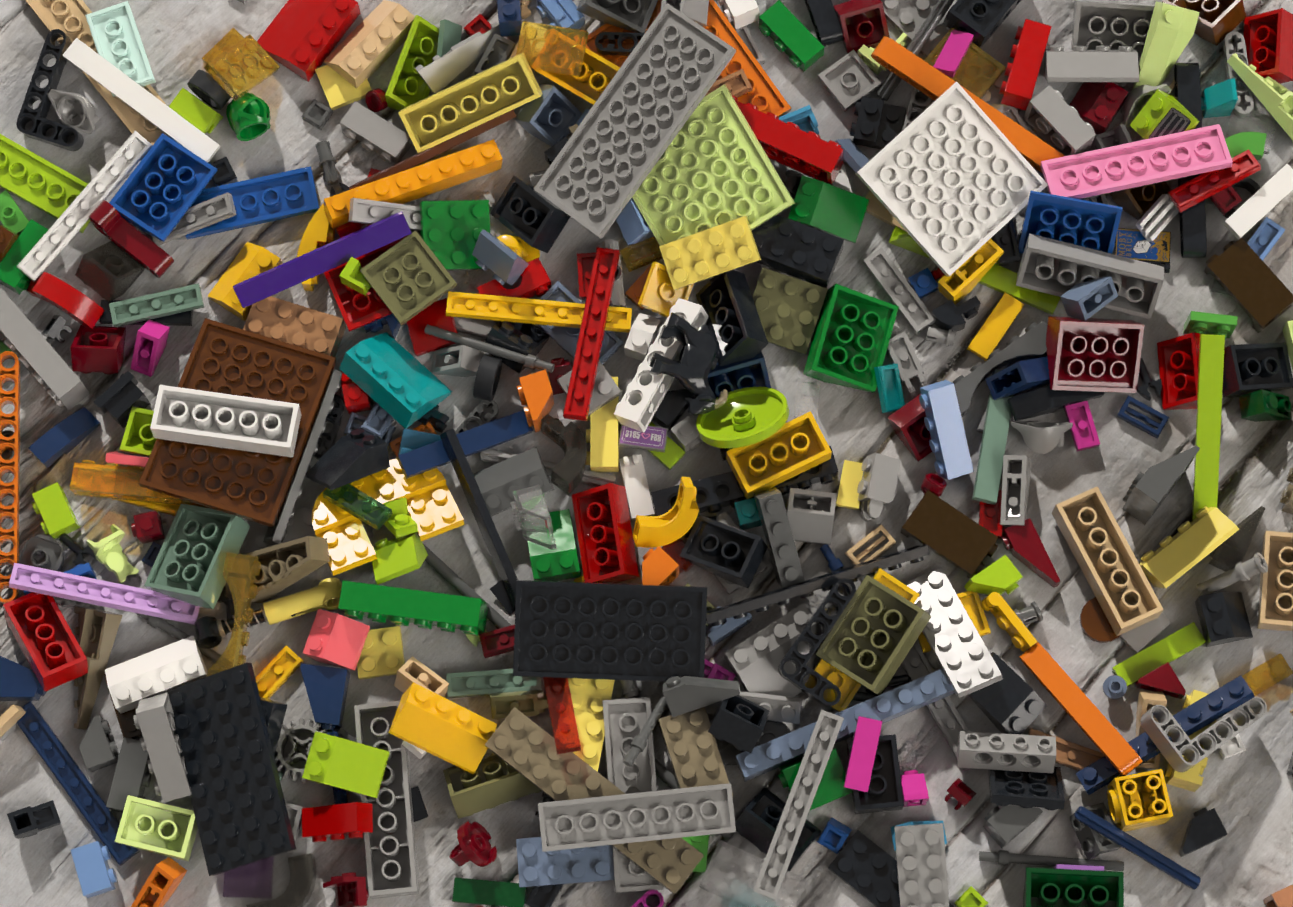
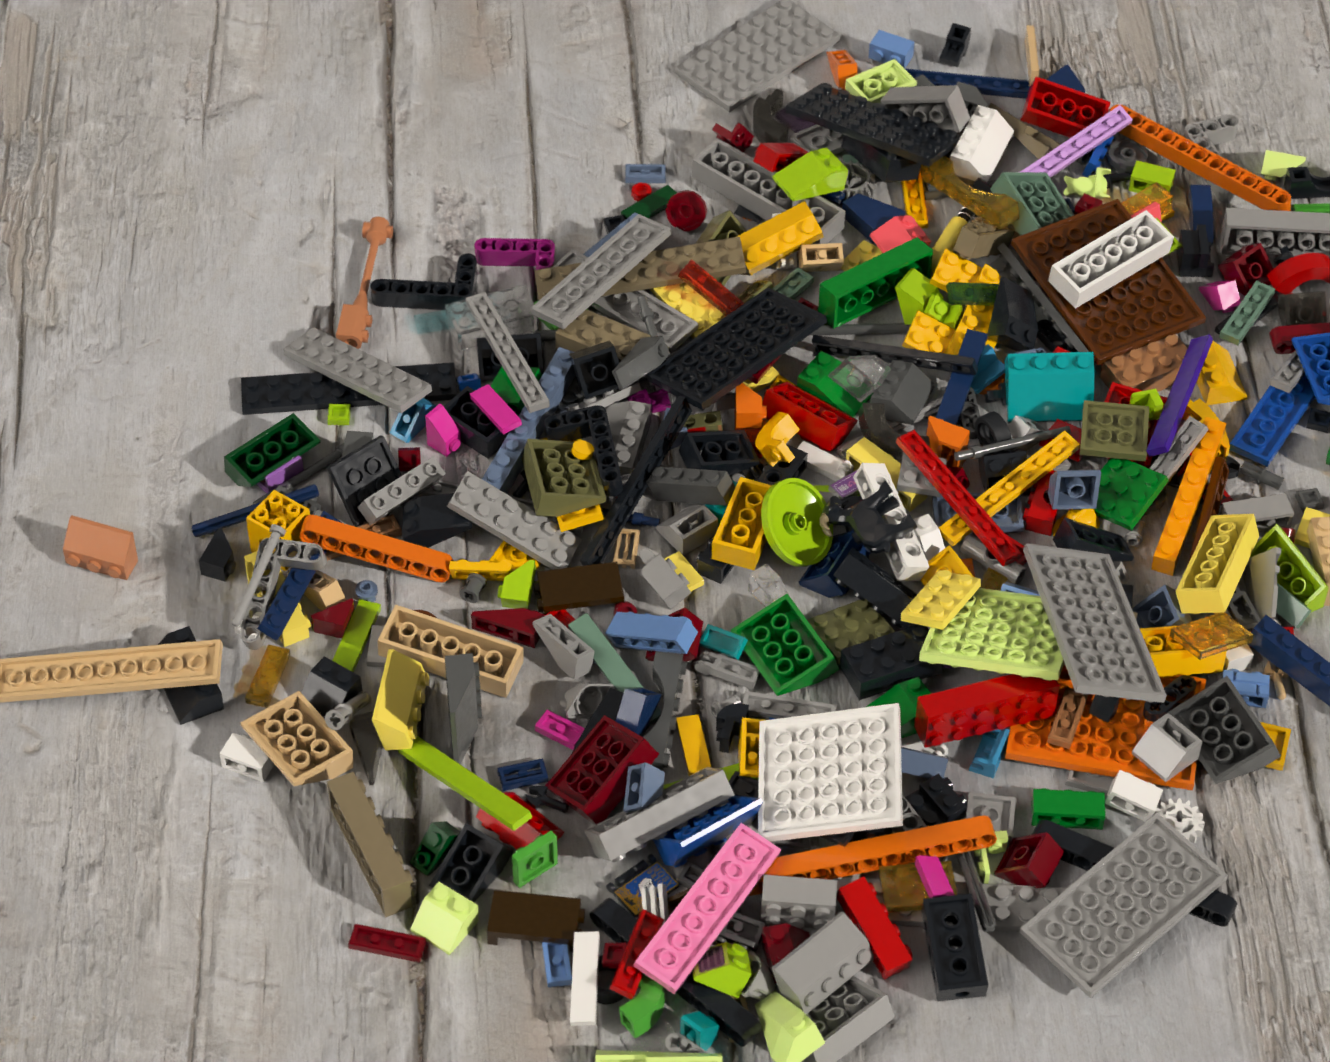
camera: 130 degrees right, 25 degrees down
(836, 642) = (582, 450): none -> yellow tile
(1175, 756) = (276, 533): none -> light grey bar

